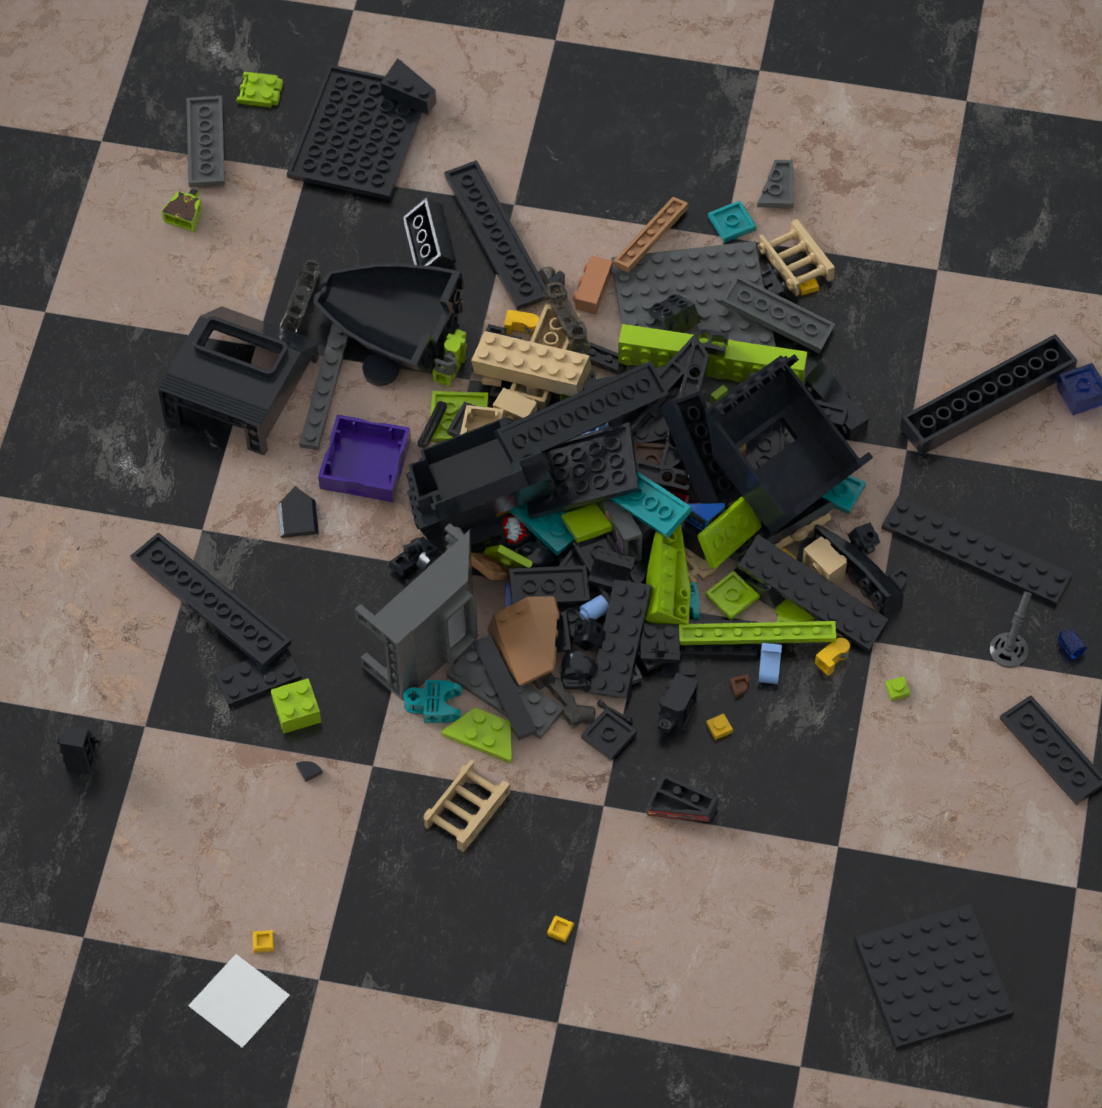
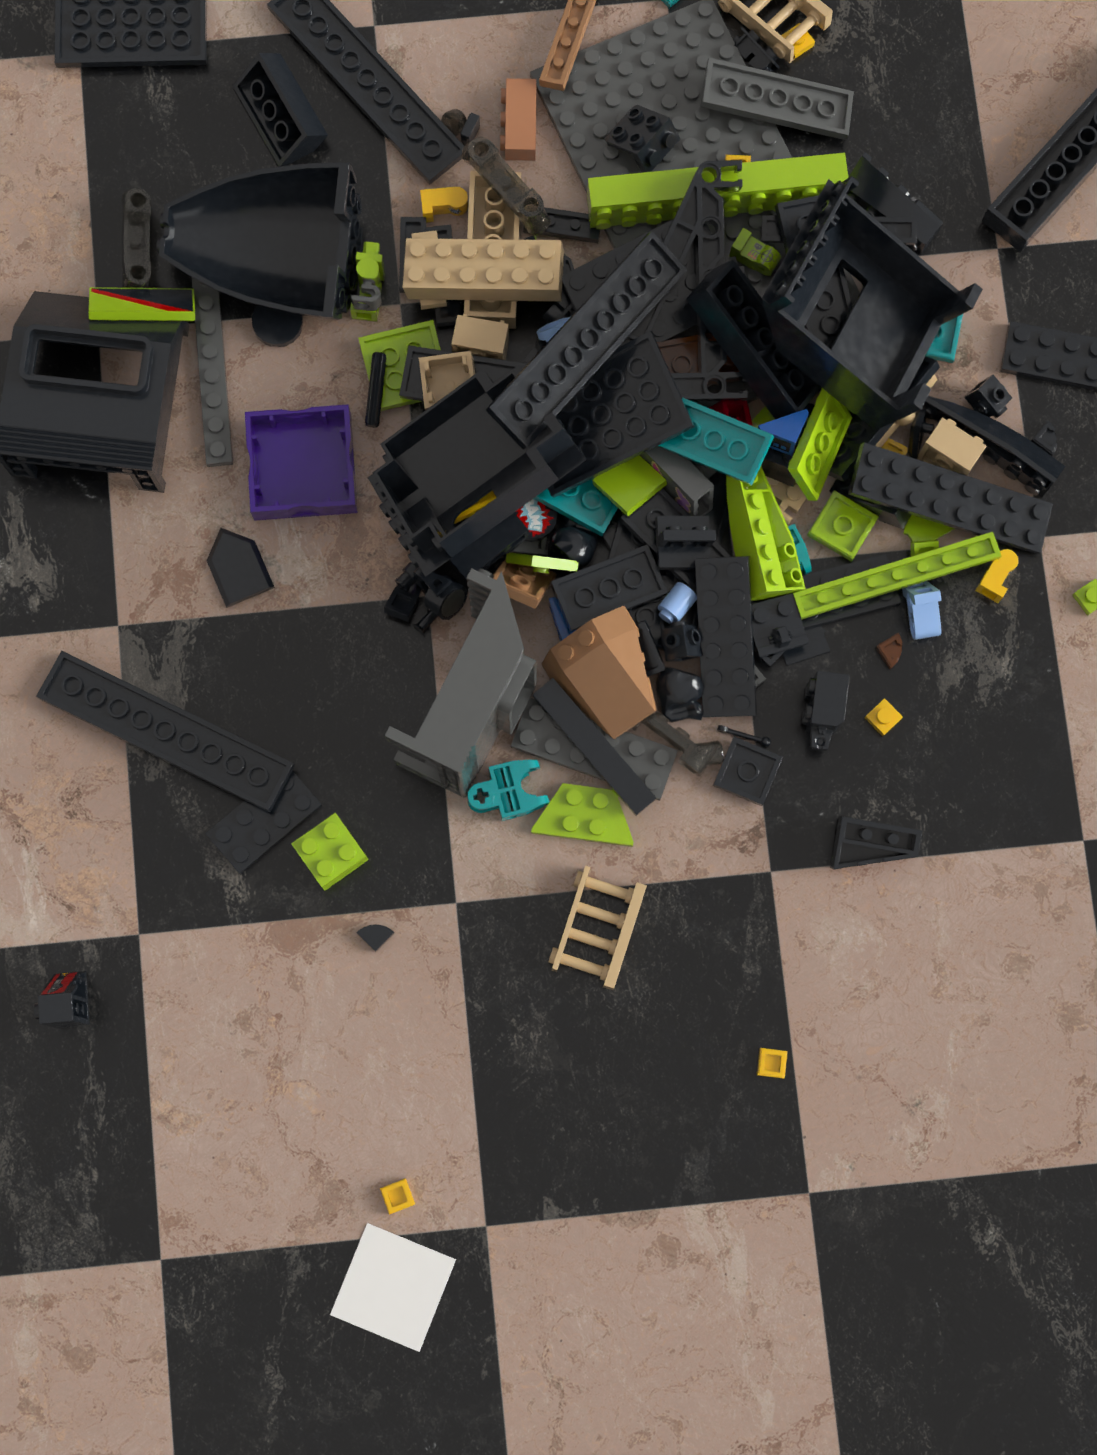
camera: 20 degrees left, 20 degrees up
(291, 330) = (141, 304): none -> tile

